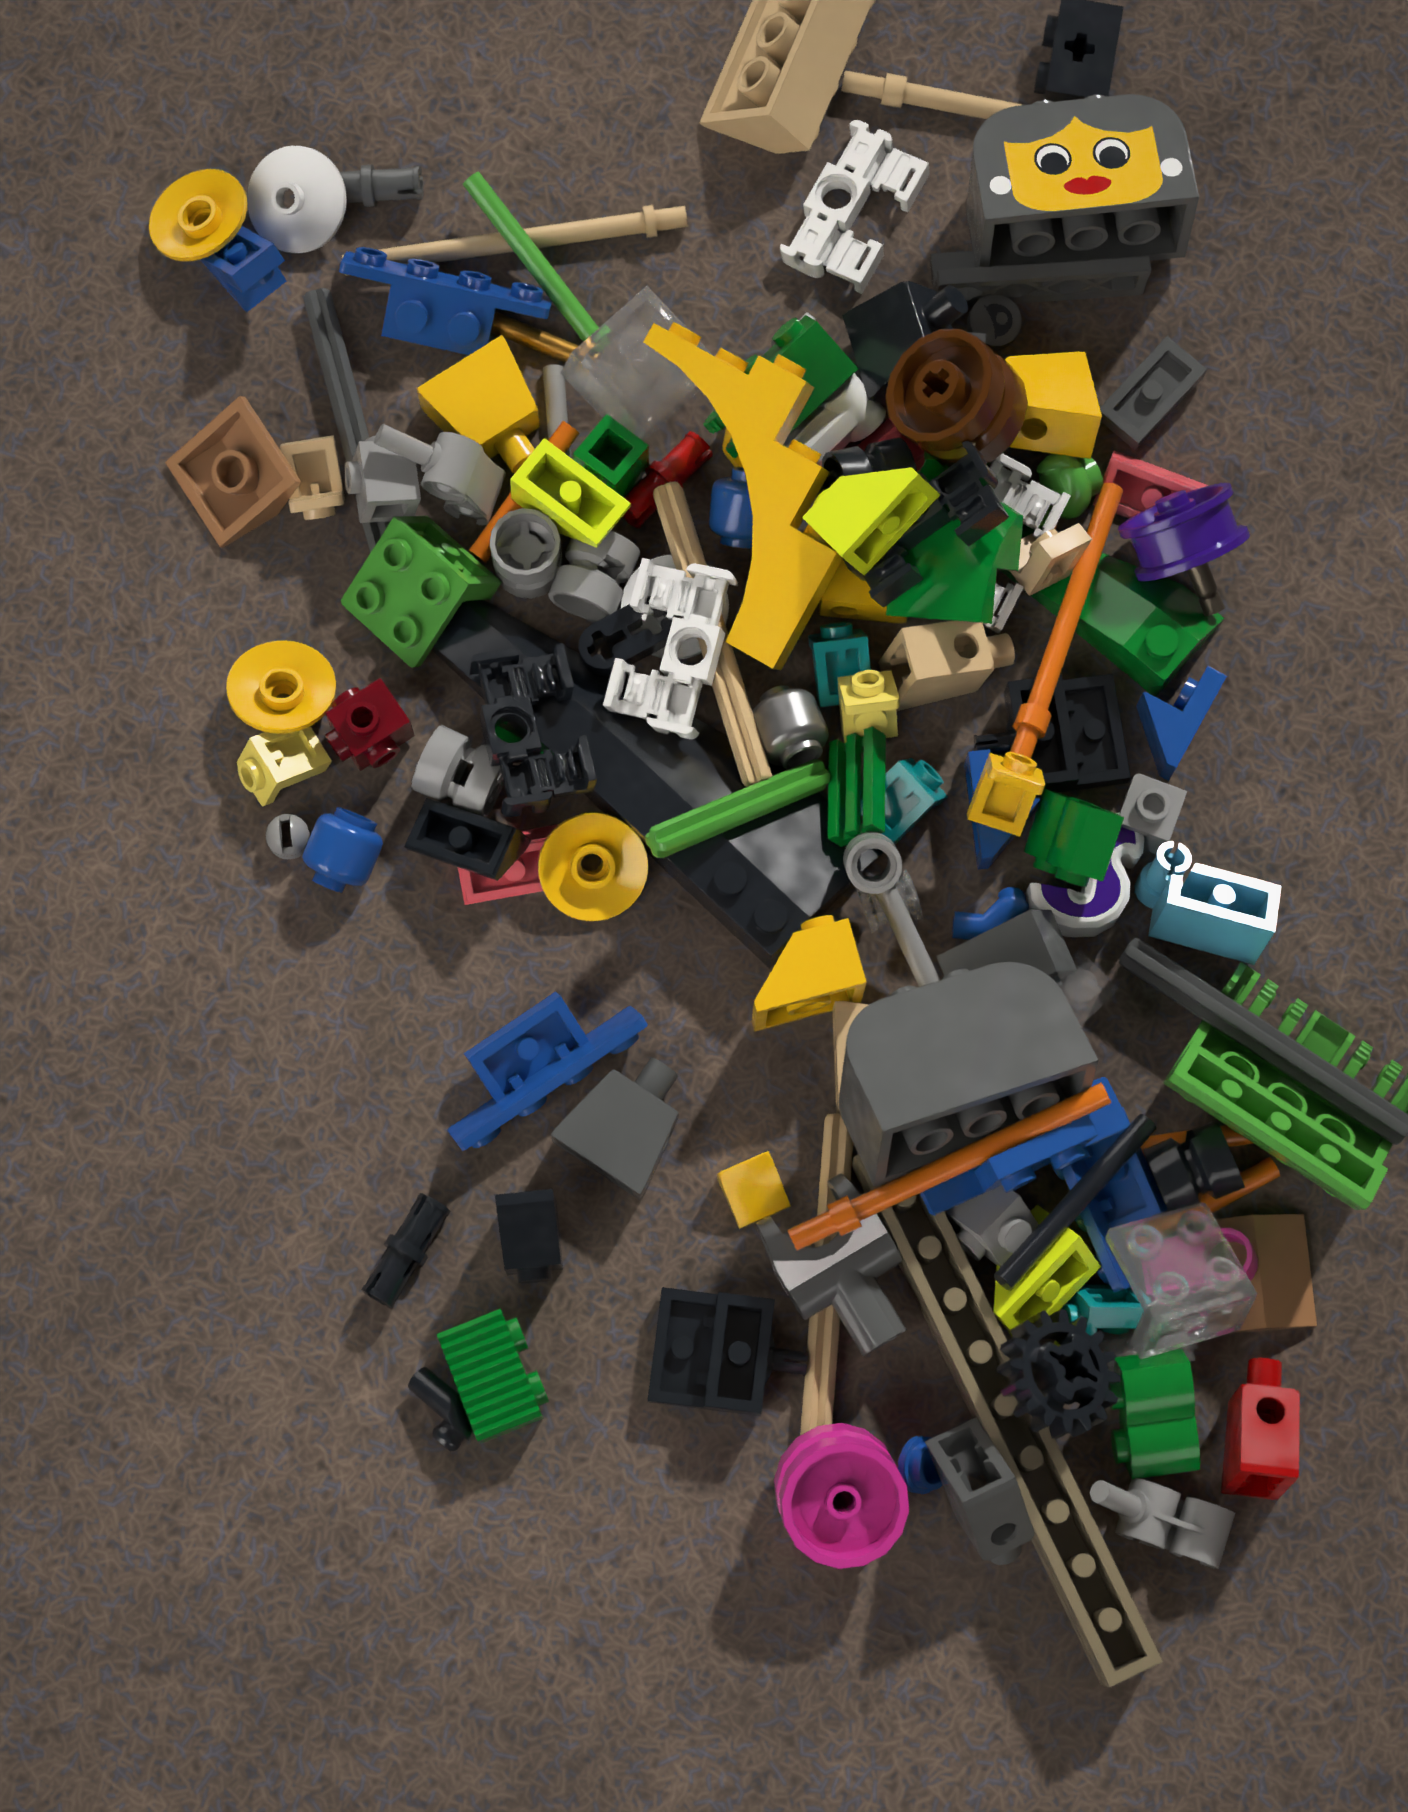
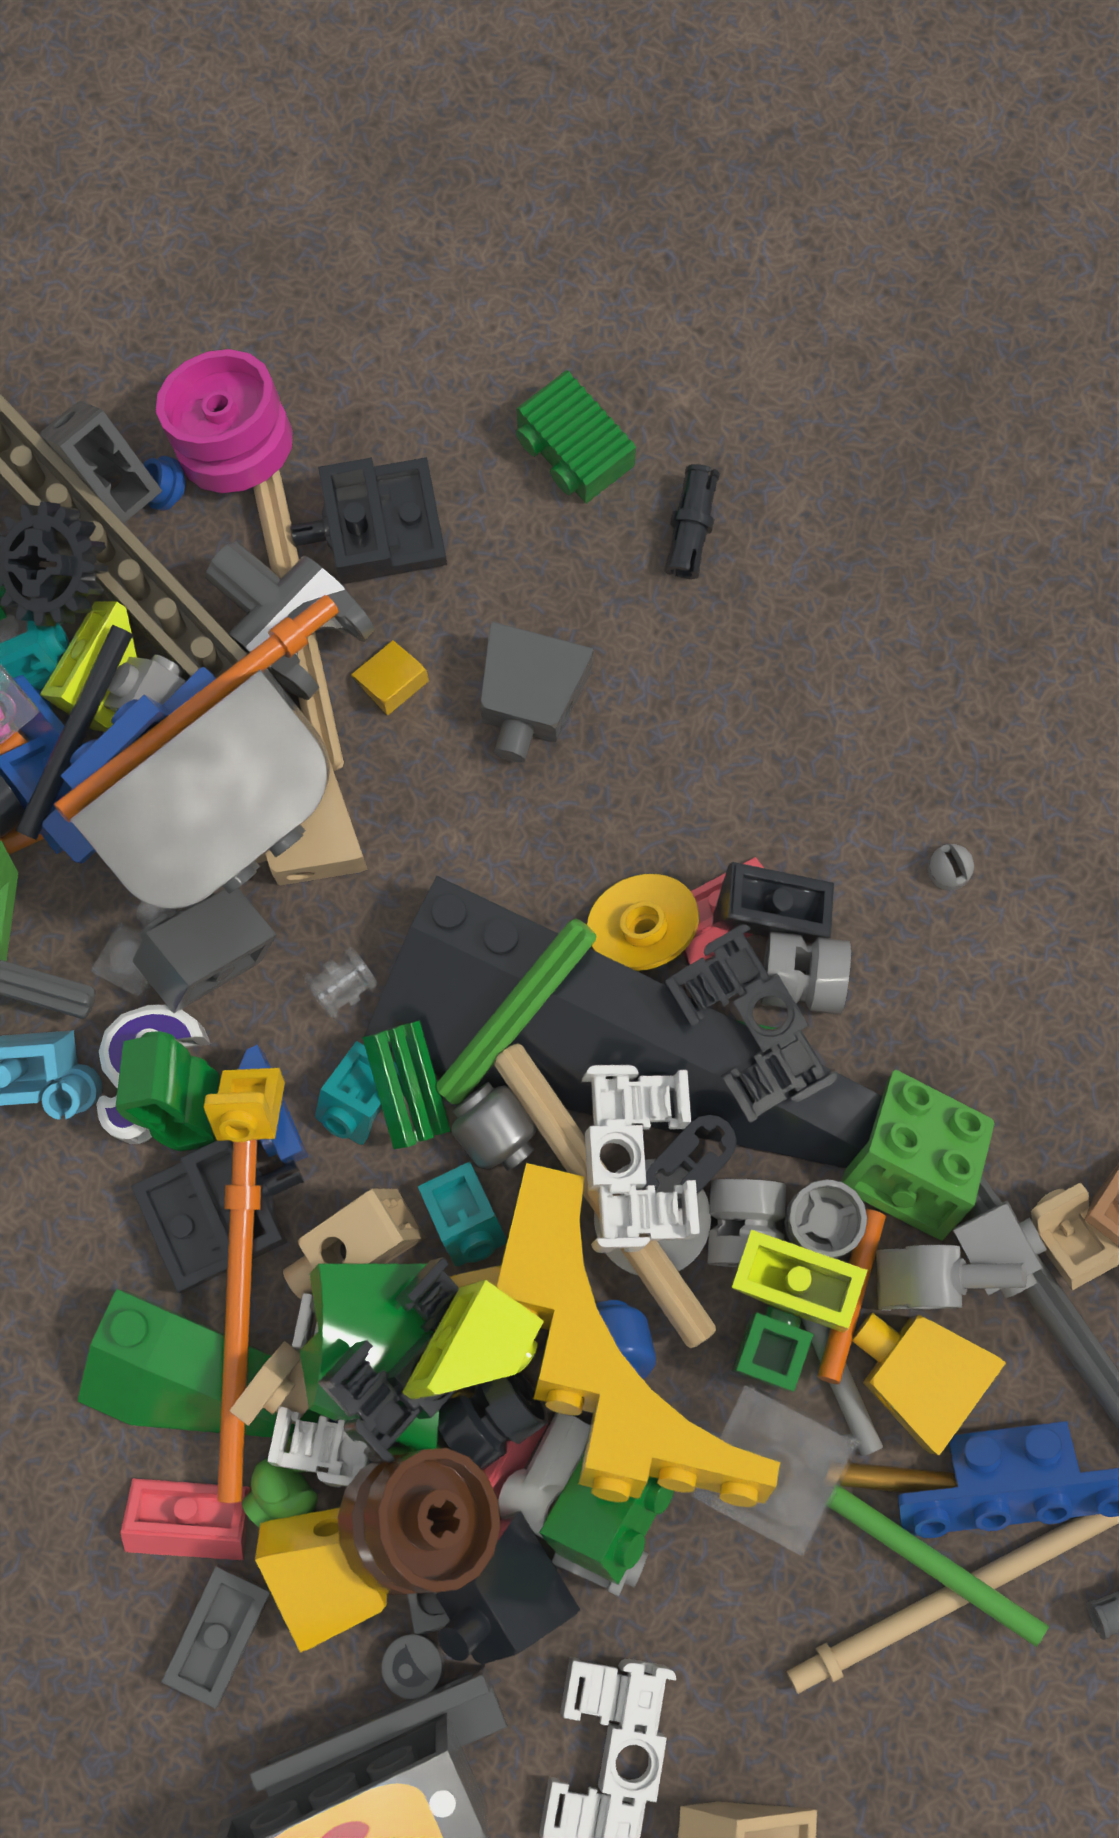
camera: 165 degrees right, 0 degrees up
(277, 670) = (1043, 1009): yellow dish -> none
(280, 761) = (986, 934): light yellow bracket -> none
(342, 849) = (892, 863): blue head -> none
(367, 725) = (906, 1005): dark red brick -> none
(446, 1404) = (623, 412): black arm -> none
(529, 1234) = (583, 562): black slope -> none
(535, 1058) = (631, 723): blue bracket -> none
(674, 467) = (710, 1360): red pin -> none
(811, 974) = (392, 870): yellow slope -> none
(868, 701) = (420, 1174): light yellow bracket -> none
(890, 900) = (346, 976): light grey piece -> none
(1009, 905) = (229, 1000): blue arm -> none
(1152, 810) = (97, 1150): light grey bracket -> none
(1171, 729) = (94, 1248): blue slope -> none
(1185, 535) = (133, 1460): dark purple wheel -> none

